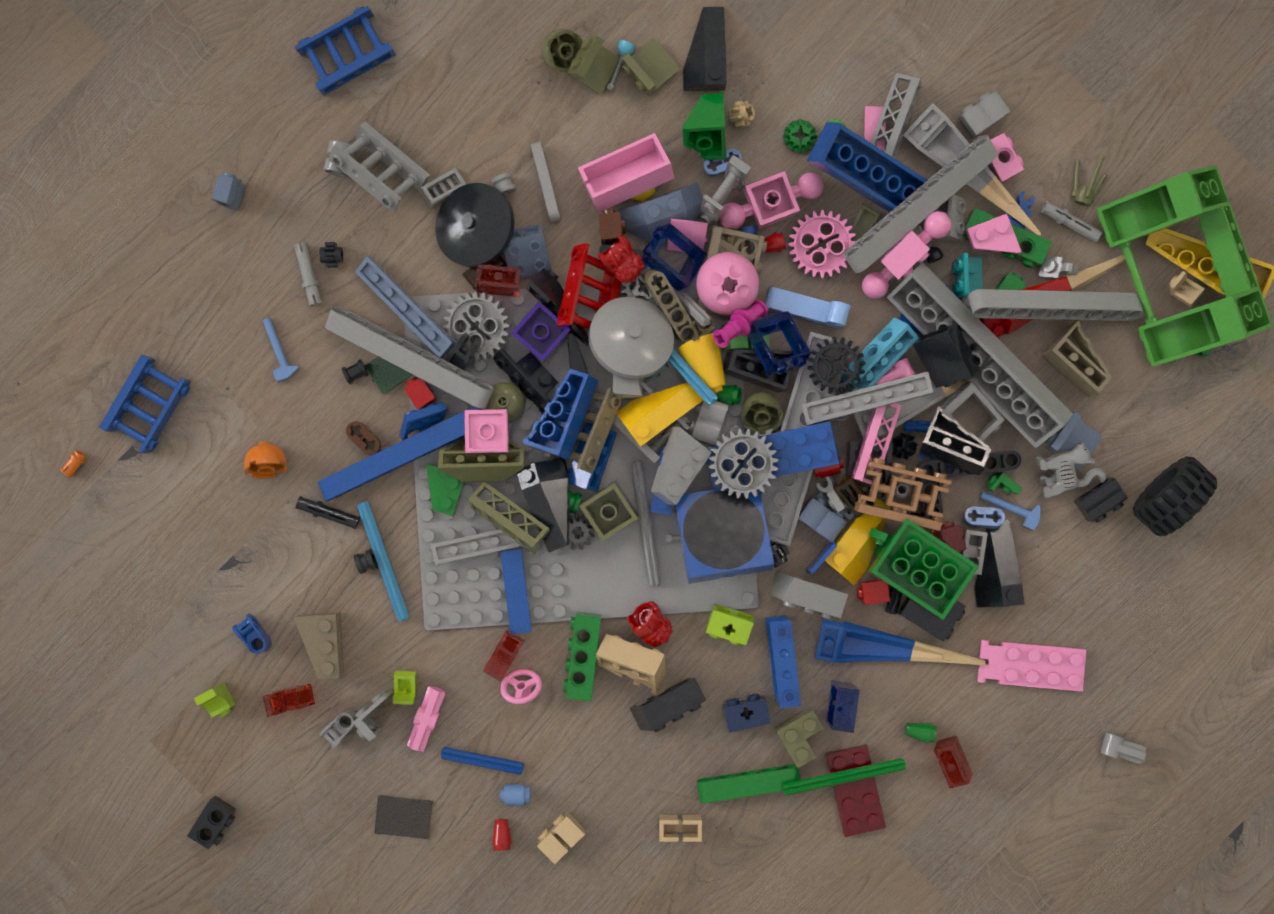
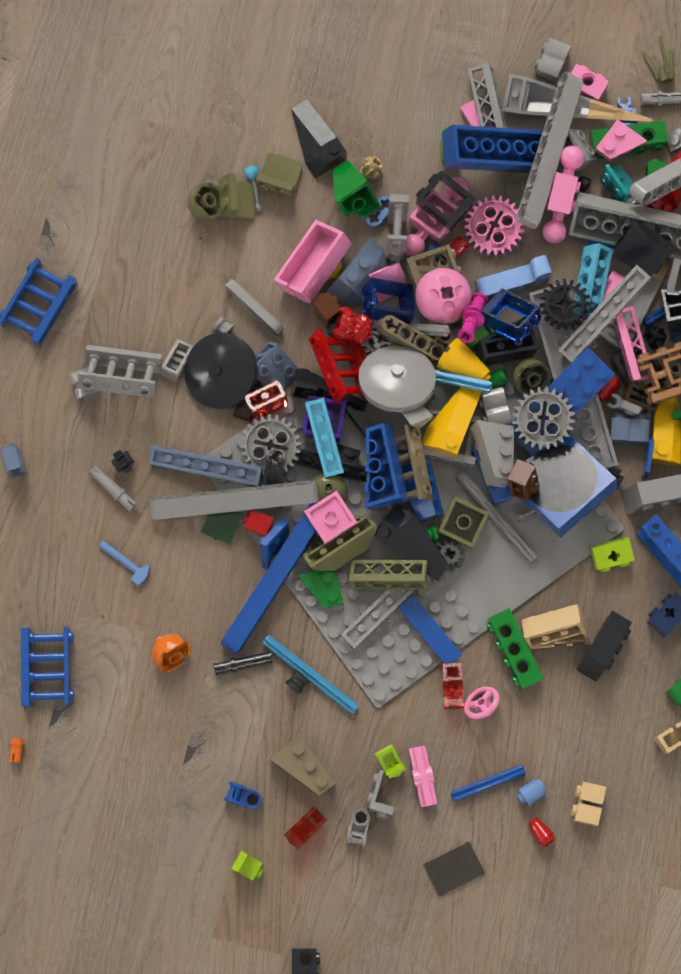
camera: 30 degrees left, 10 degrees down
(355, 371) = (196, 540): black bush -> none
(367, 434) = (235, 583): reddish brown beam -> none
(527, 351) = (324, 437): none -> medium azure plate
(650, 624) = (551, 590): red hair -> none
(685, 511) = (523, 480): none -> reddish brown brick
(792, 142) = (423, 165): green gear -> none
(796, 212) = (452, 221): none -> black window

